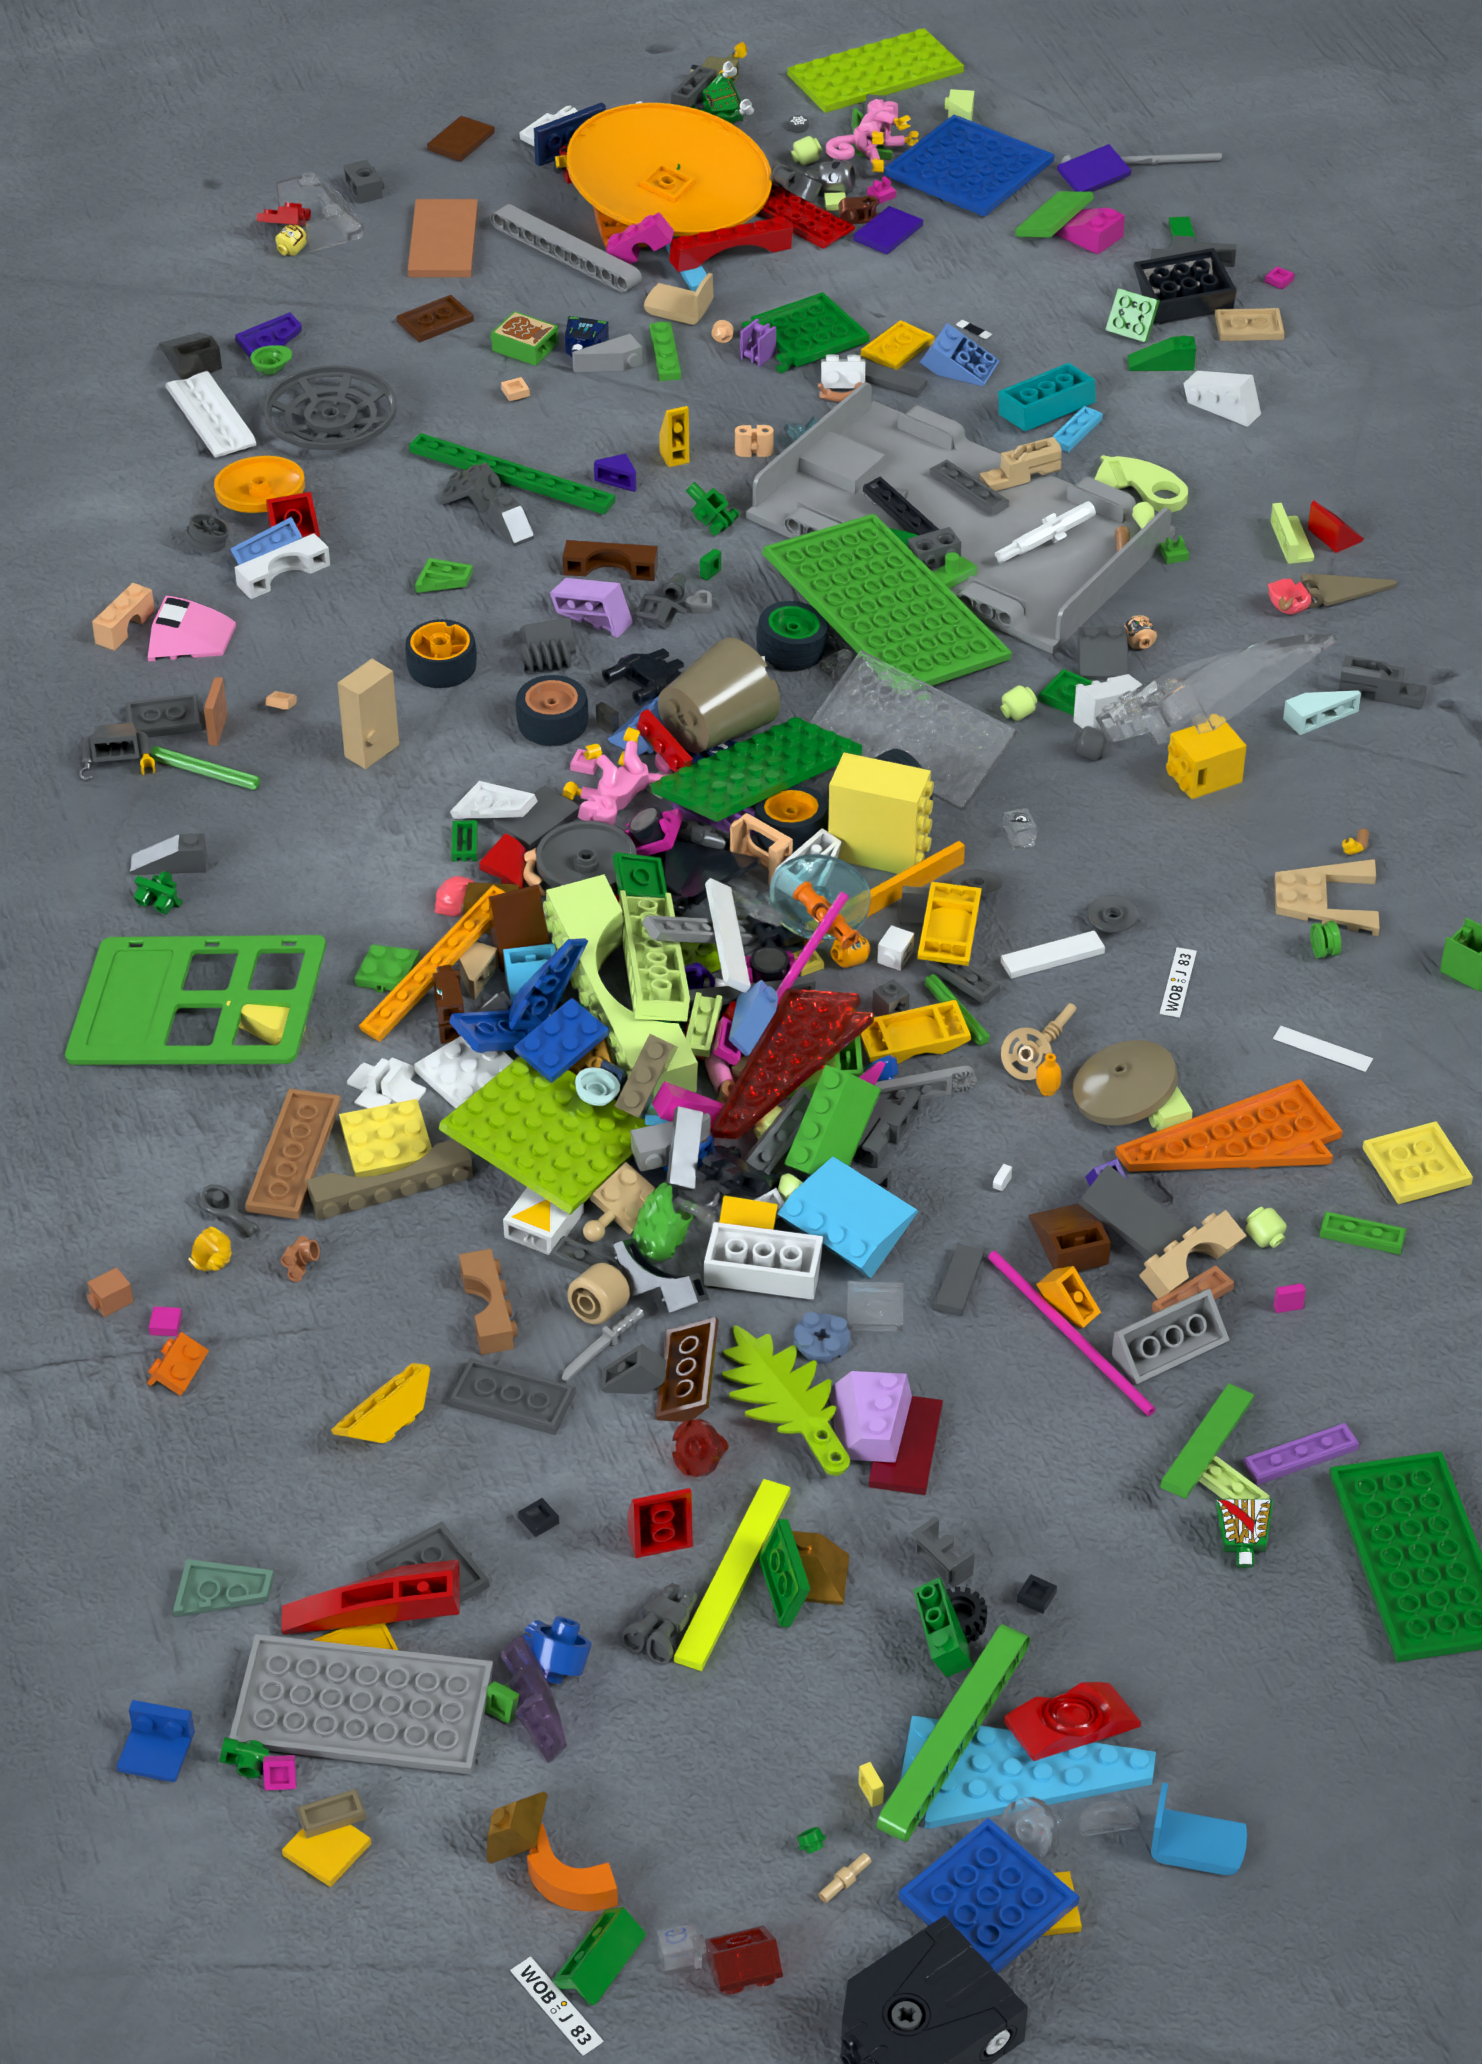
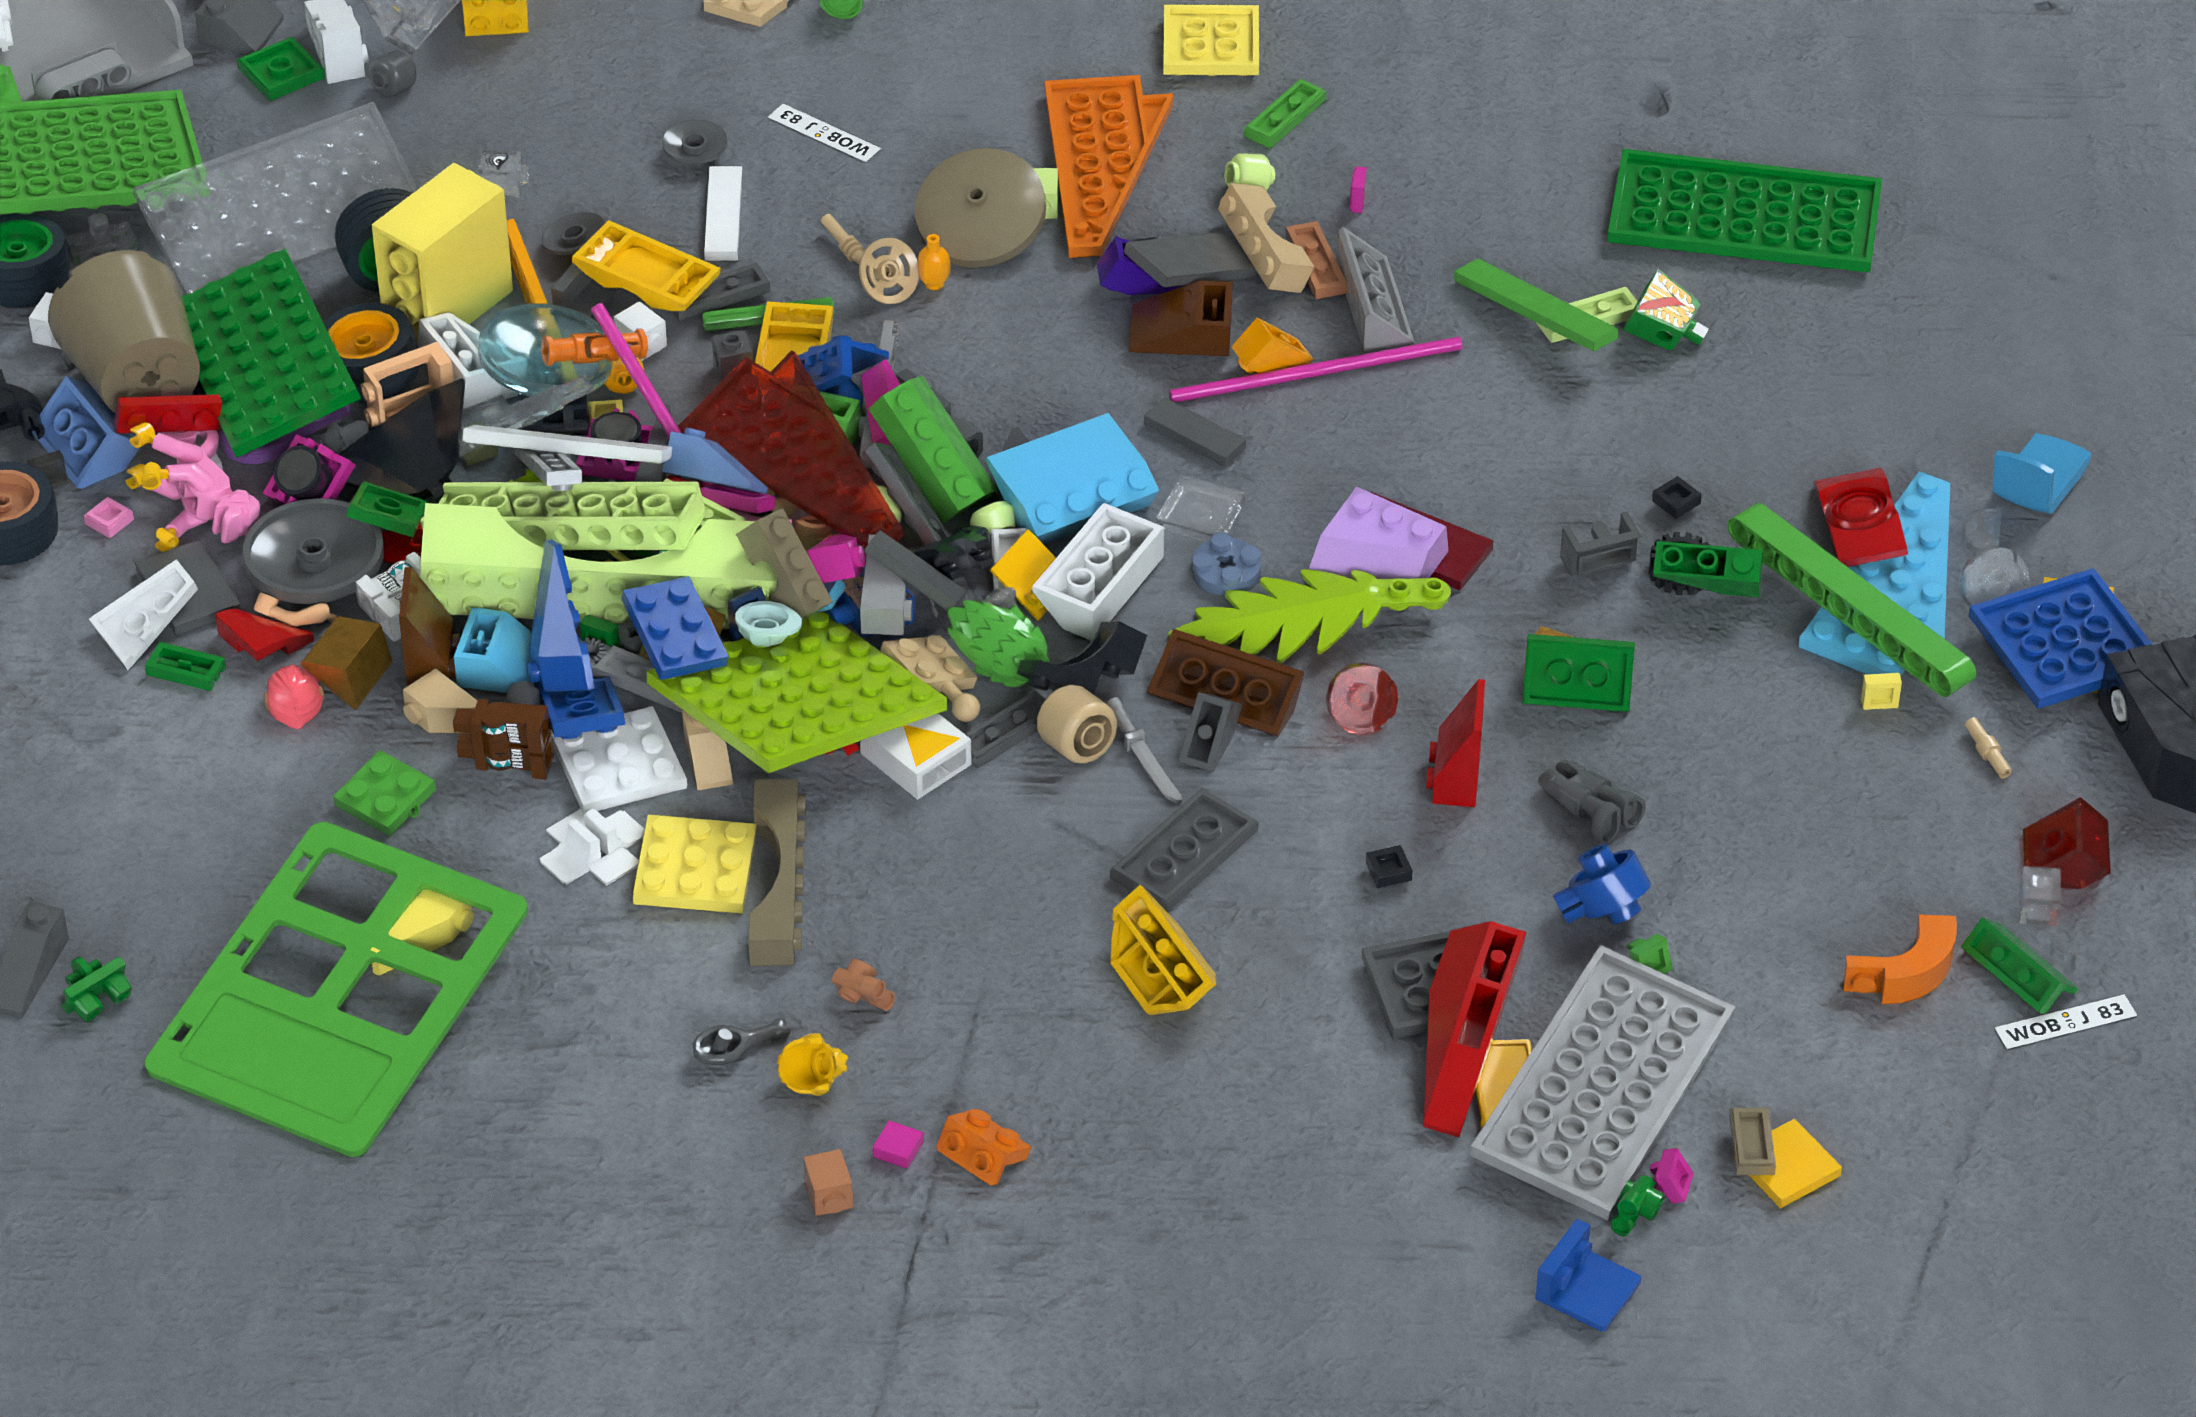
camera: 70 degrees left, 0 degrees up
(220, 1586) = (1367, 1176): sand green wing -> none
(293, 1153) = (675, 954): medium nougat plate -> none
(420, 978) = (428, 731): light orange tile -> none
(492, 1325) = (989, 823): medium nougat arch -> none
(515, 1827) = (1836, 983): pearl gold slope -> none
(538, 1707) = (1680, 922): clear purple slope -> none
(732, 1575) = (1537, 725): neon yellow tile -> none
(811, 1840) = (1933, 757): green plate -> none
(881, 1043) = (839, 359): none -> blue bracket
(1002, 1177) = (1059, 353): white piece -> none
(1018, 703) = (278, 110): yellowish green head -> none
(1300, 1453) = (1569, 253): medium lavender tile -> none
(1323, 1048) = (993, 58): white sticker -> none

